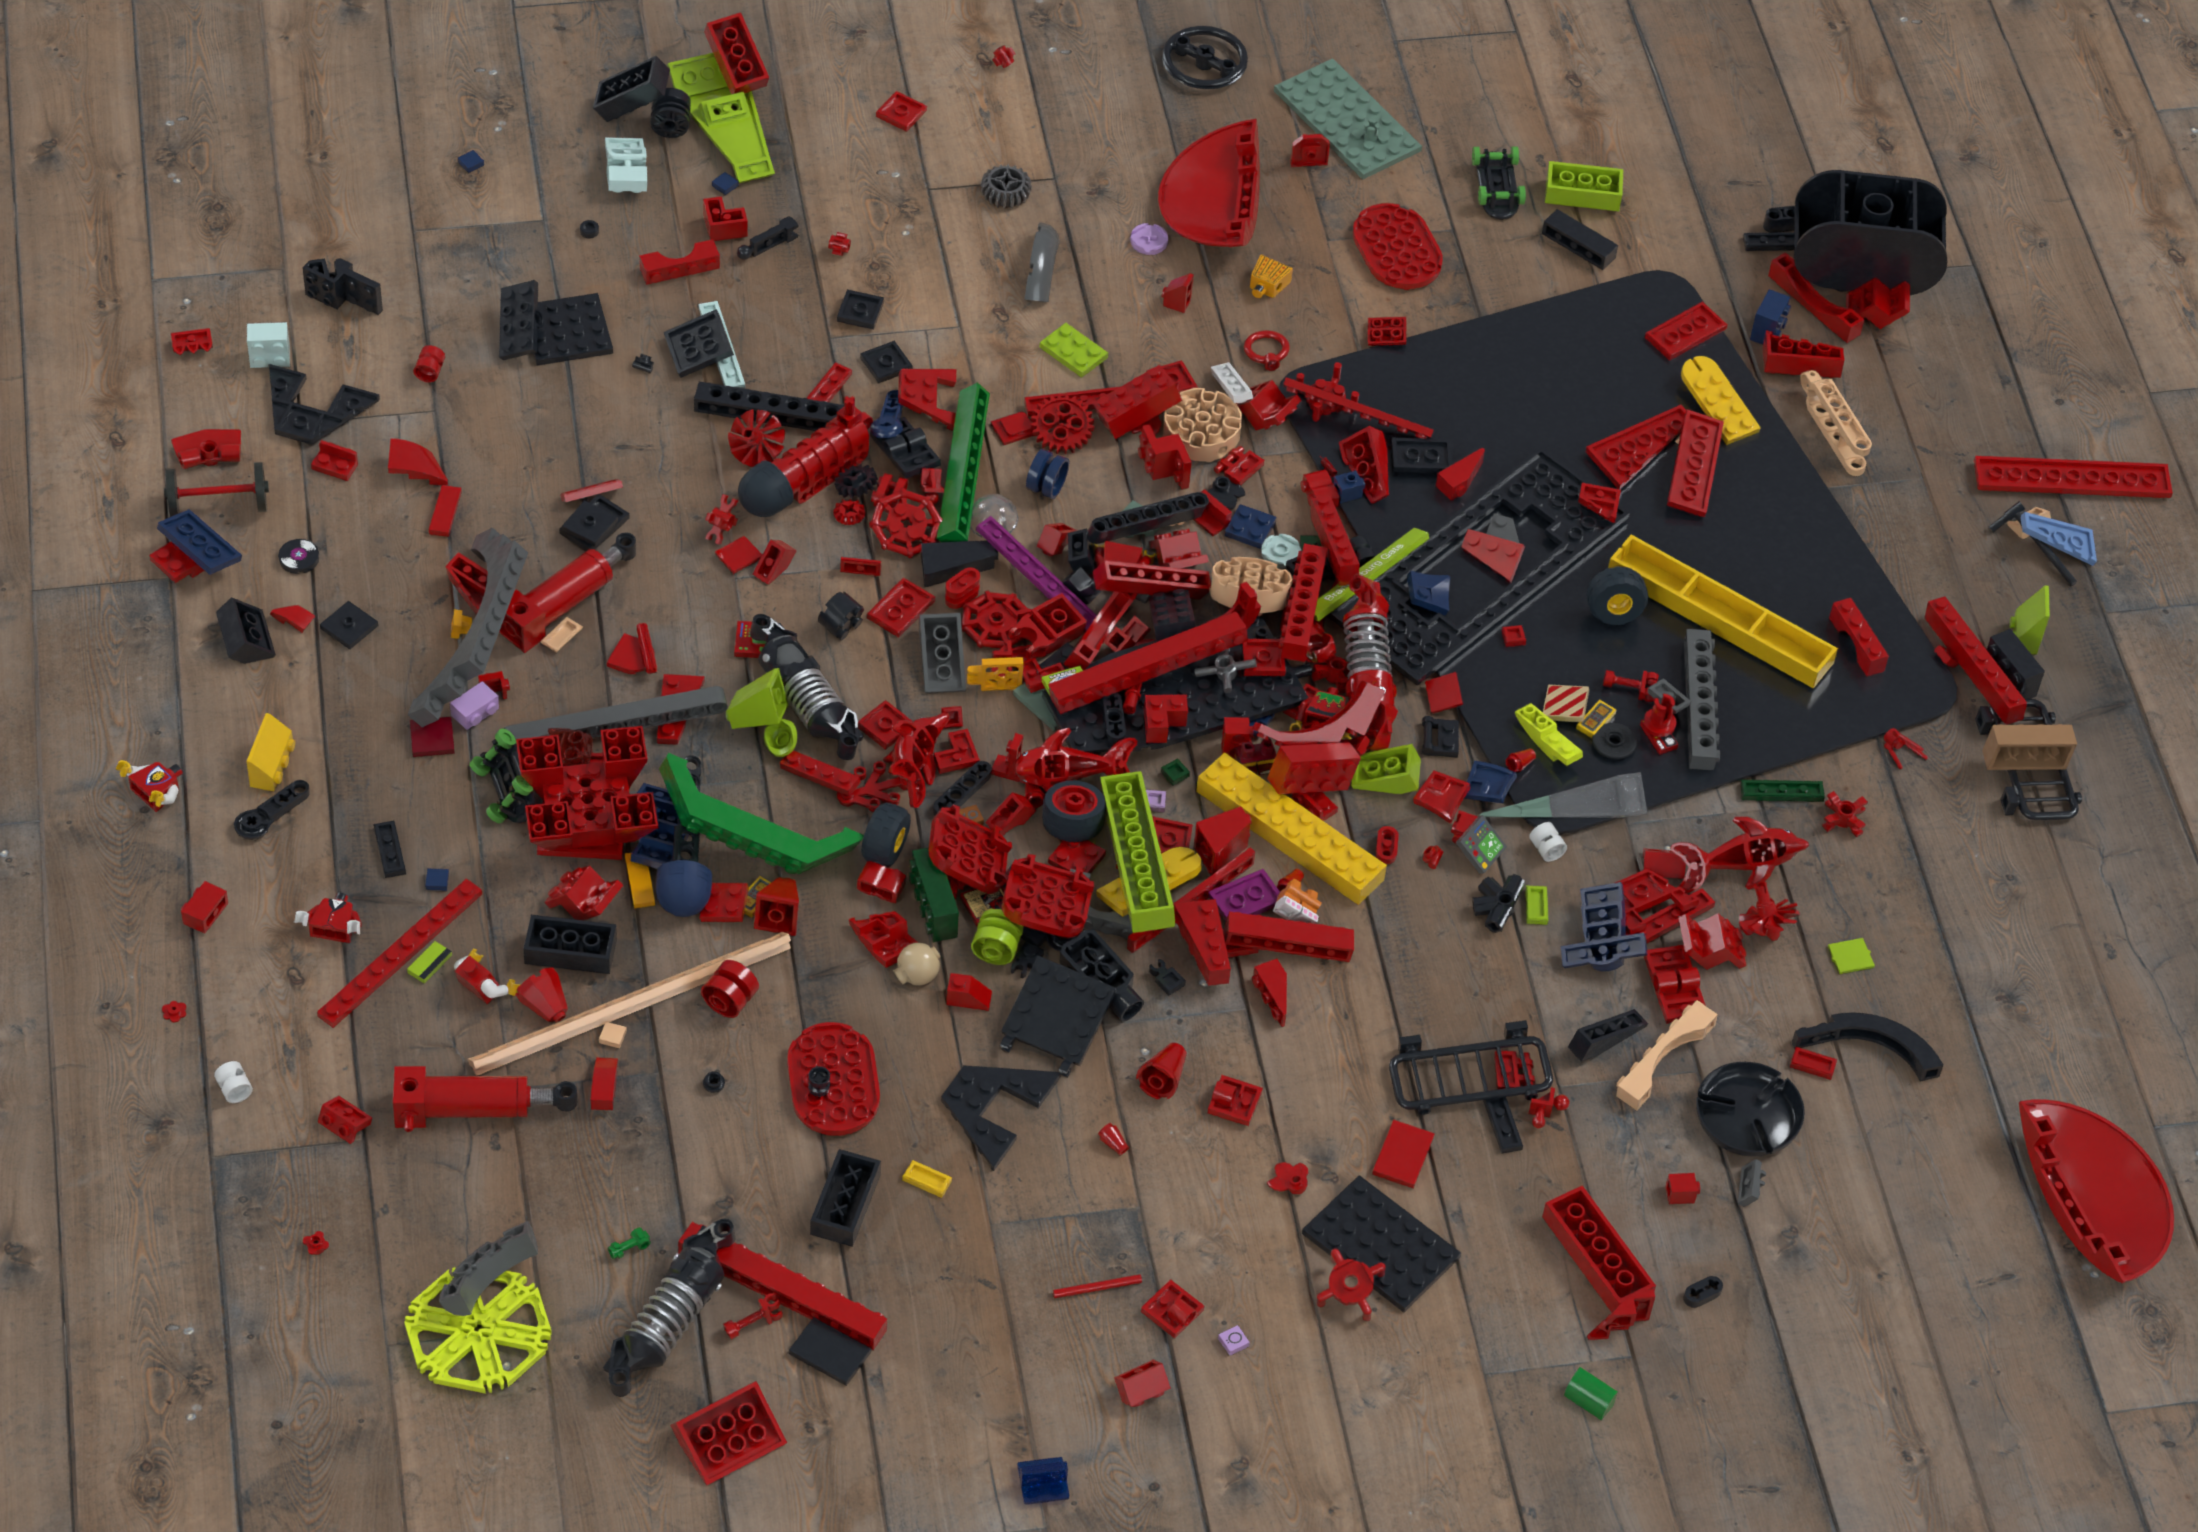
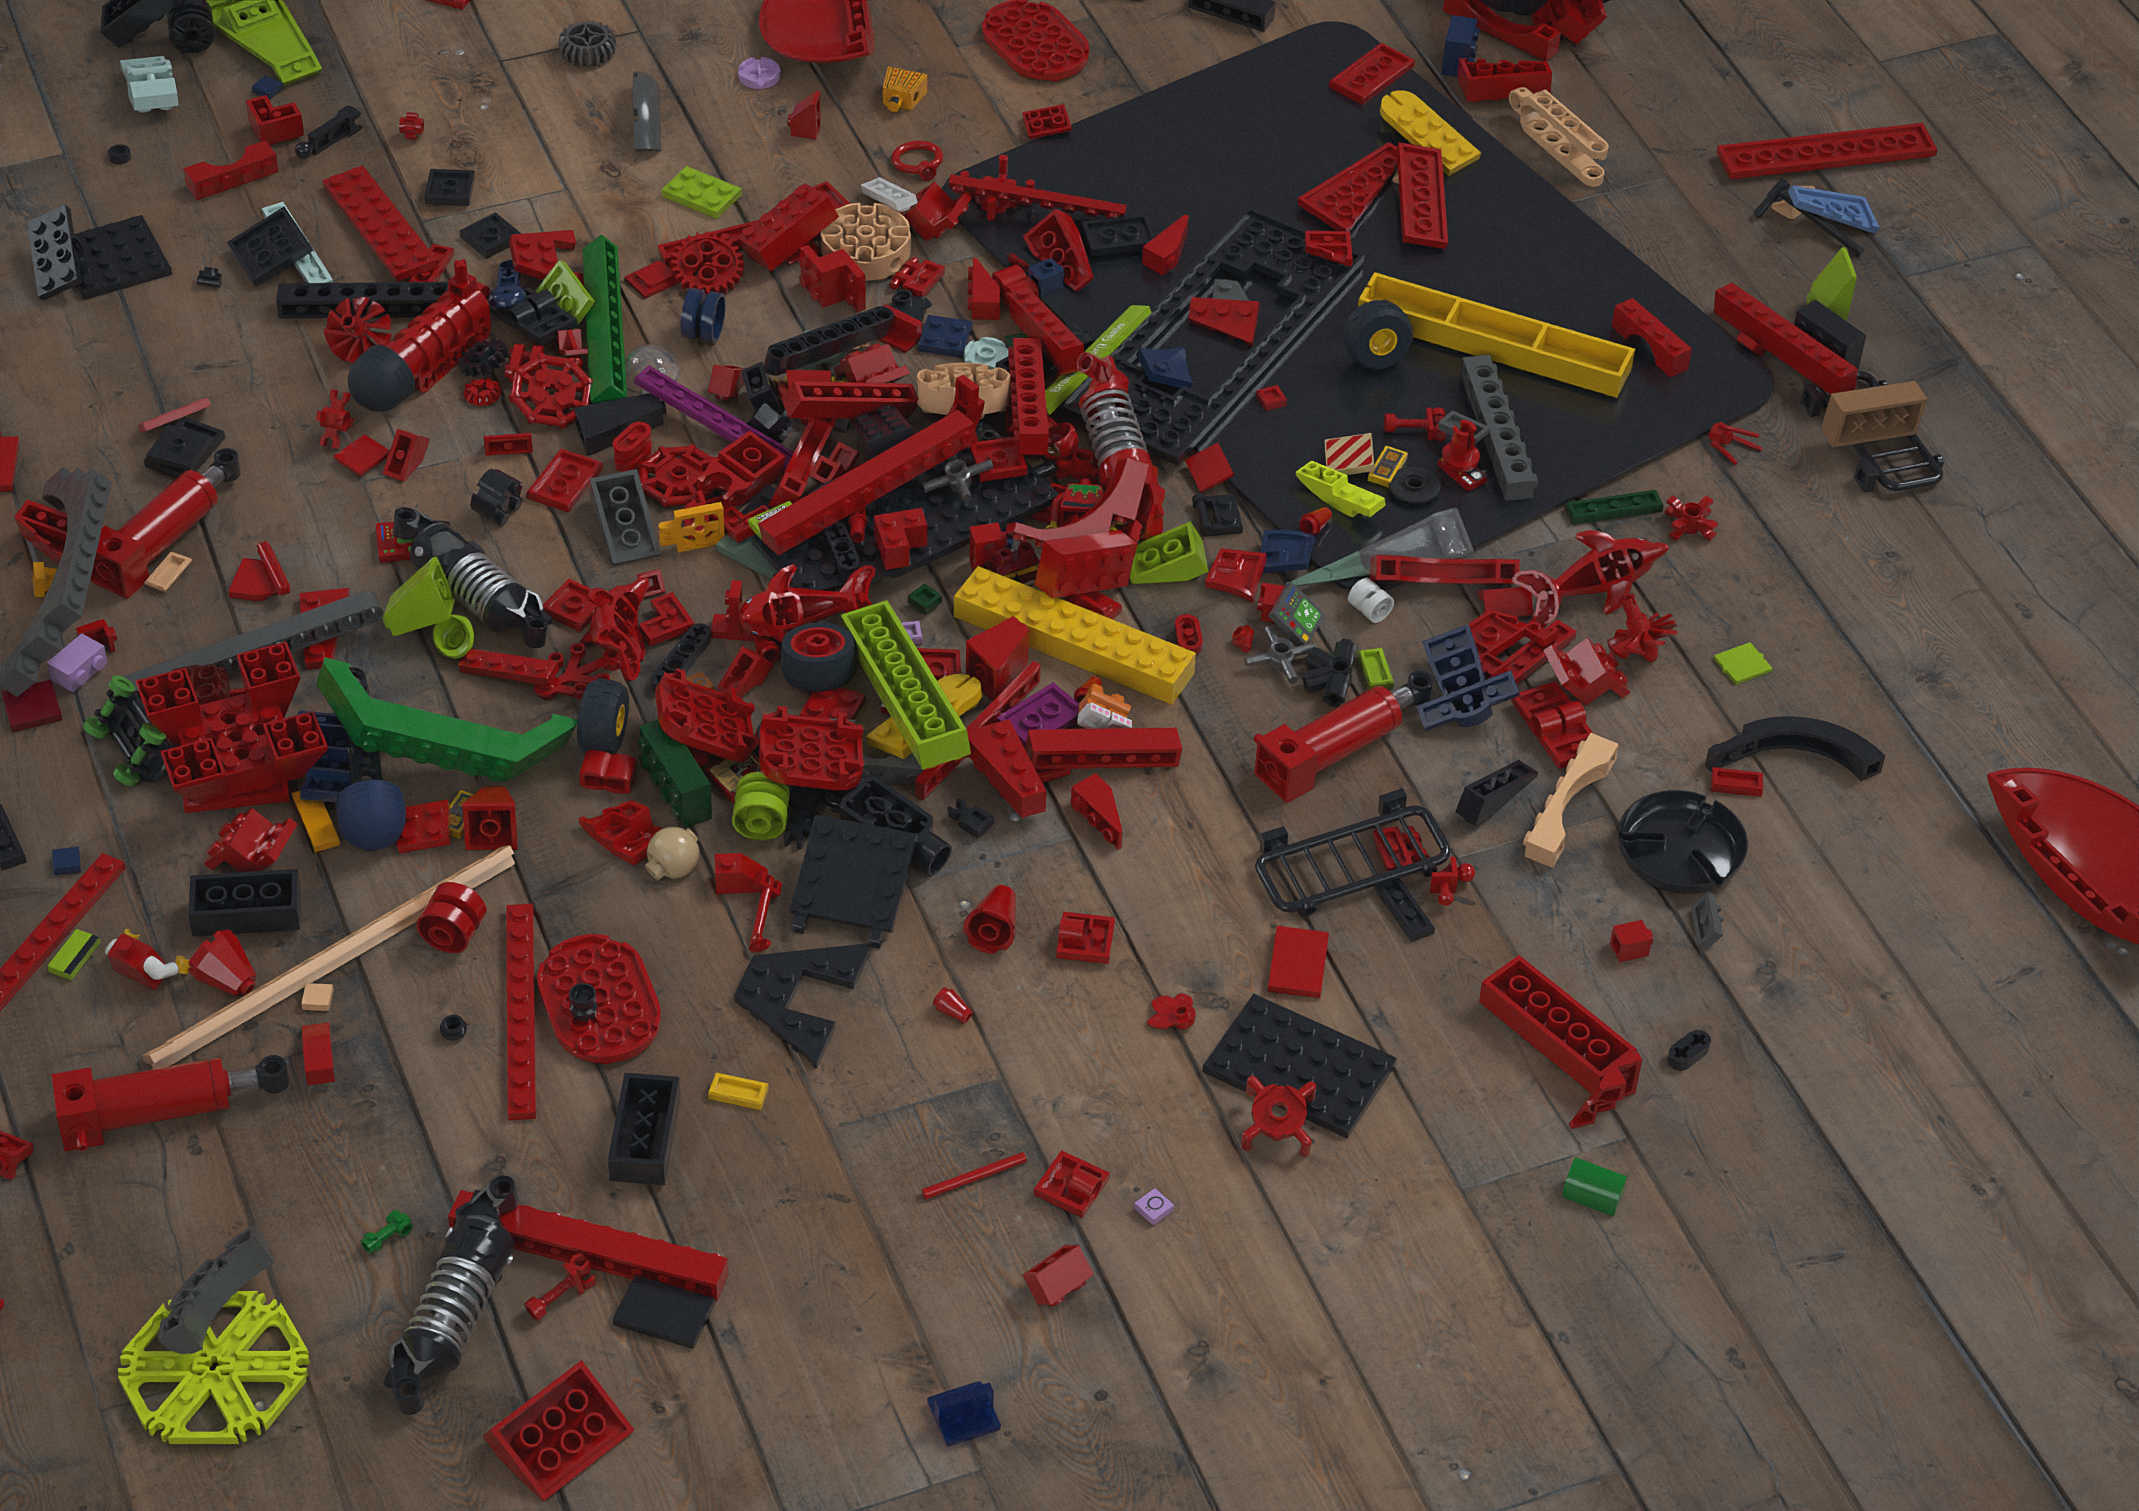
camera: 10 degrees left, 5 degrees down
(769, 1077) = (520, 1012): none -> red plate
(794, 335) = (380, 223): none -> red plate
(937, 431) = (567, 291): none -> lime plate
(988, 1008) = (769, 889): none -> red hinge
(1292, 490) = (984, 292): none -> red slope
(1443, 975) = (1292, 759): none -> red piece
(1459, 877) = (1279, 654): none -> flat silver bar
(1616, 826) = (1443, 571): none -> red arch

